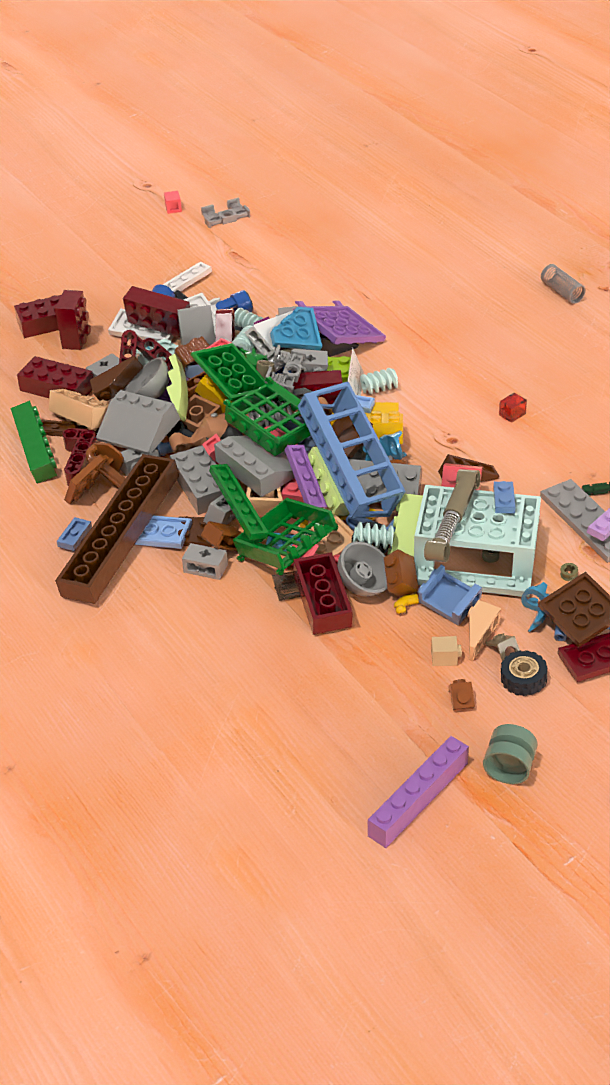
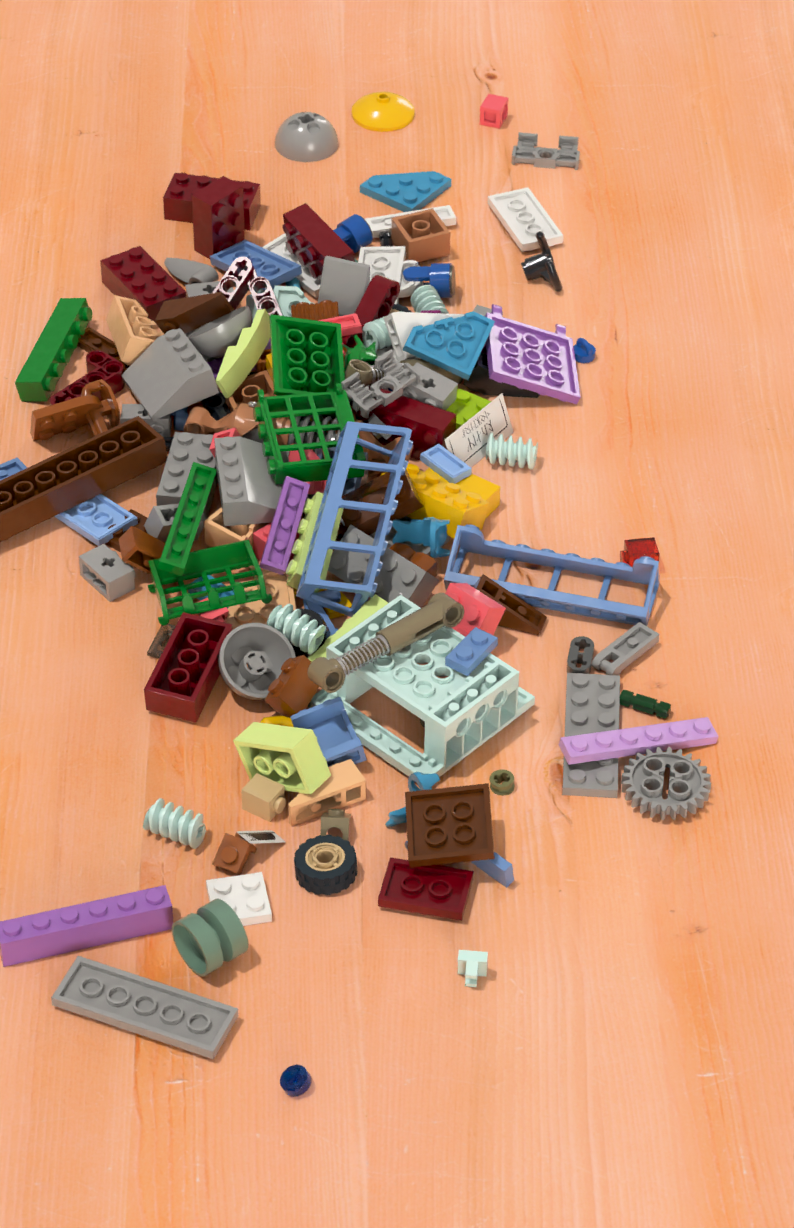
camera: 30 degrees right, 0 degrees up
(71, 257) = (306, 138): none -> light grey piece
(78, 359) = (191, 271): none -> light grey piece
(102, 227) = (383, 112): none -> yellow dish
(110, 338) = (266, 263): none -> medium blue plate
(162, 264) = (406, 190): none -> dark azure plate
(203, 281) = (421, 234): none -> nougat brick
(251, 253) = (523, 218): none -> white plate
(290, 273) = (542, 264): none -> black piece
(360, 308) = (584, 351): none -> blue tile
(409, 694) = (175, 823): none -> light aqua piece
(416, 439) = (643, 571): none -> medium blue window
(444, 616) = (283, 755): none -> yellowish green brick
(469, 676) = (263, 836): none -> sticker
(487, 718) = (245, 895): none -> white plate
(507, 822) = (145, 1007): none -> light grey plate
(536, 478) = (578, 657): none -> dark grey beam
(558, 462) = (625, 649): none -> light grey plate

